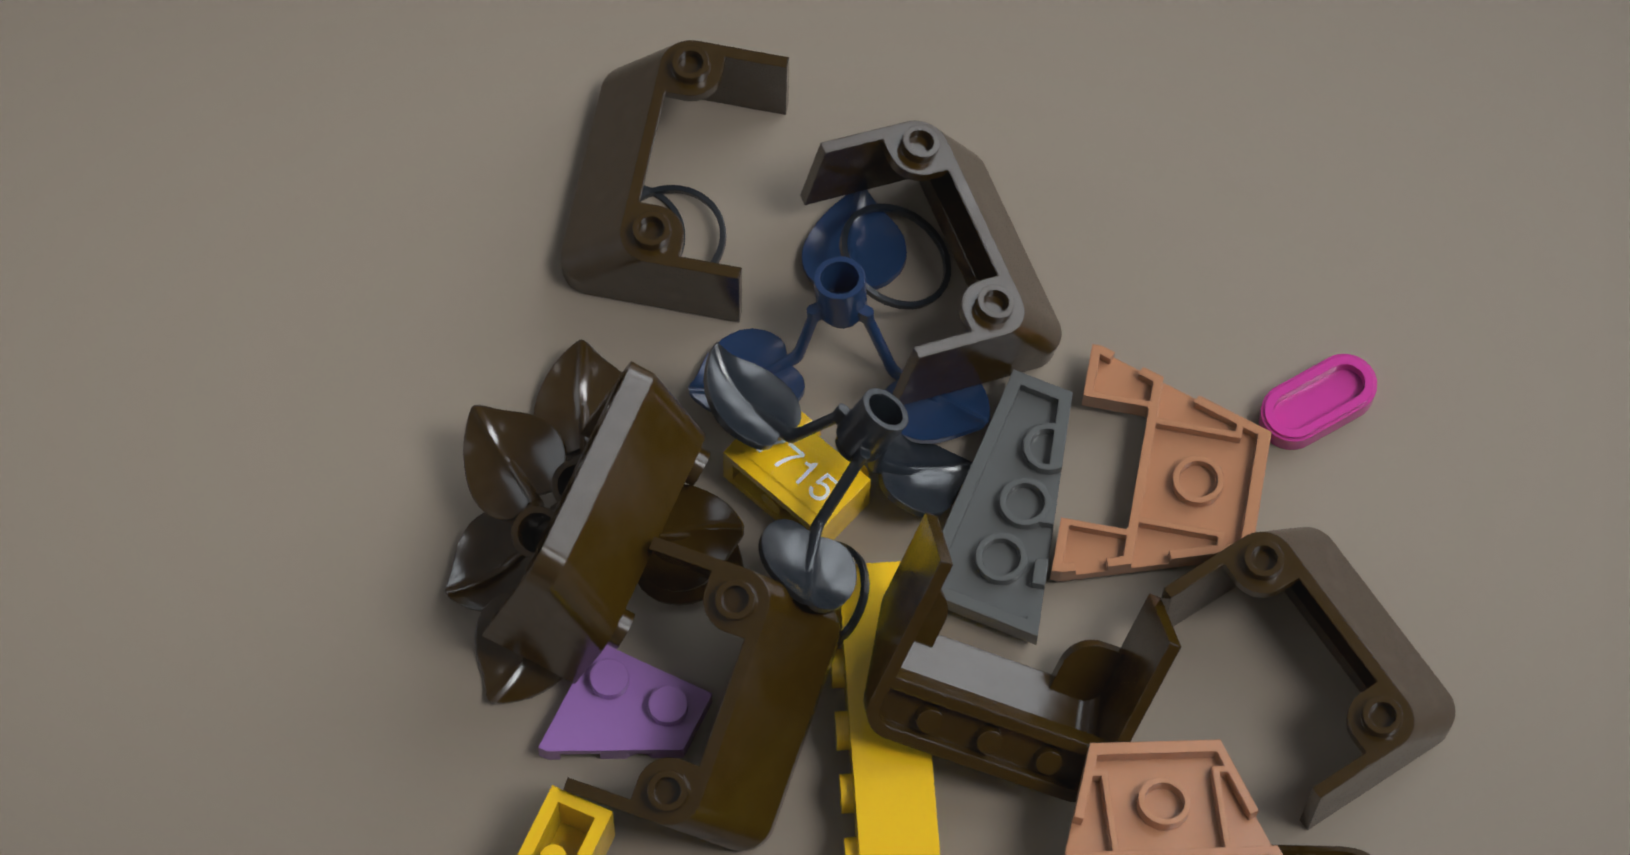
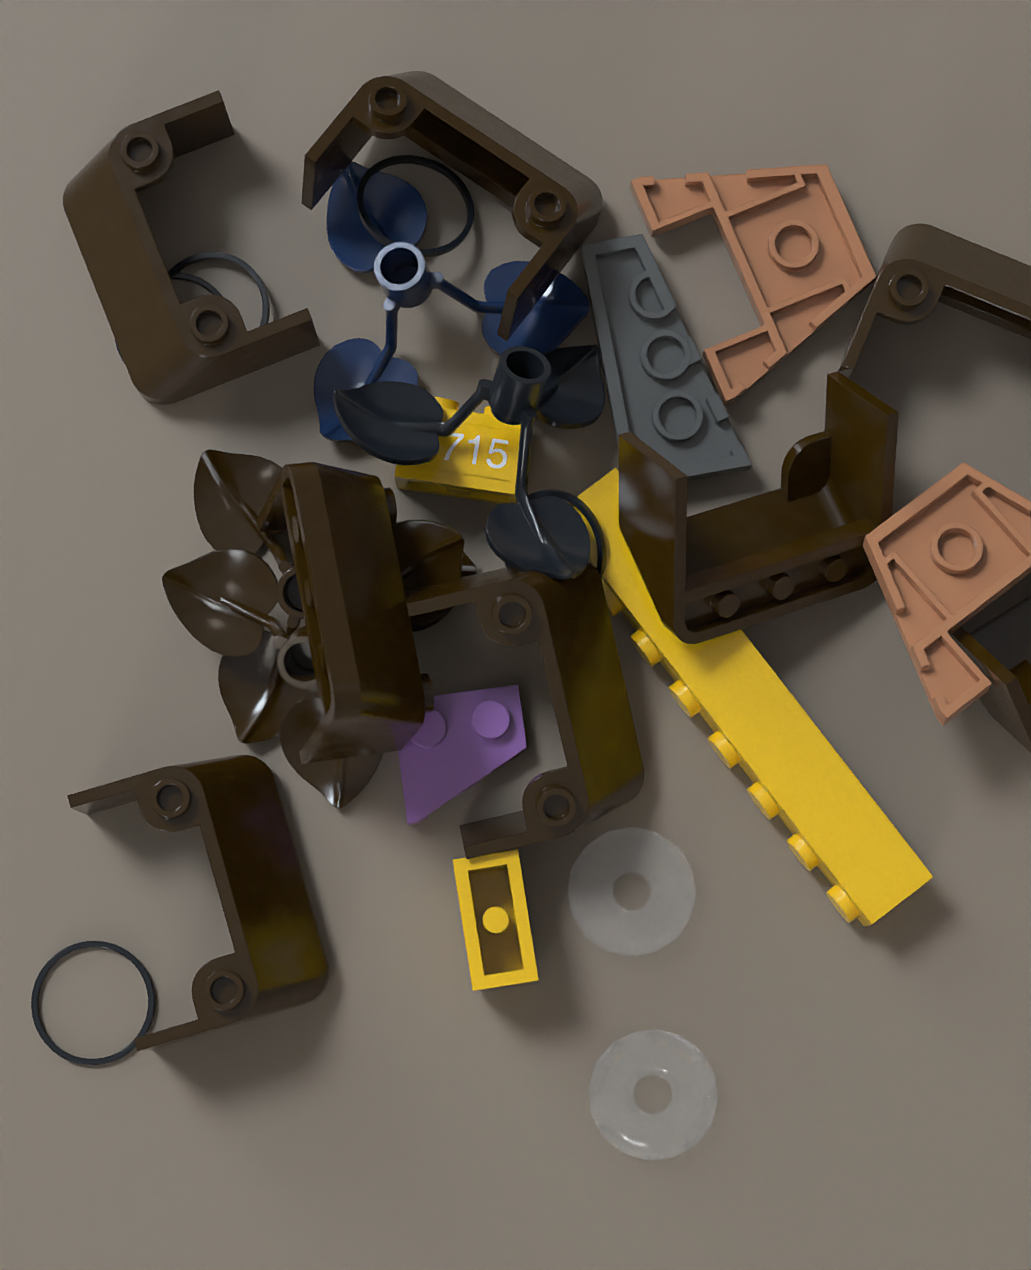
camera: 30 degrees left, 15 degrees up
(157, 677) = (35, 1000): none -> black piece
(358, 767) = (258, 880): none -> dark brown windscreen
(1318, 401) = (841, 109): dark pink tile -> none

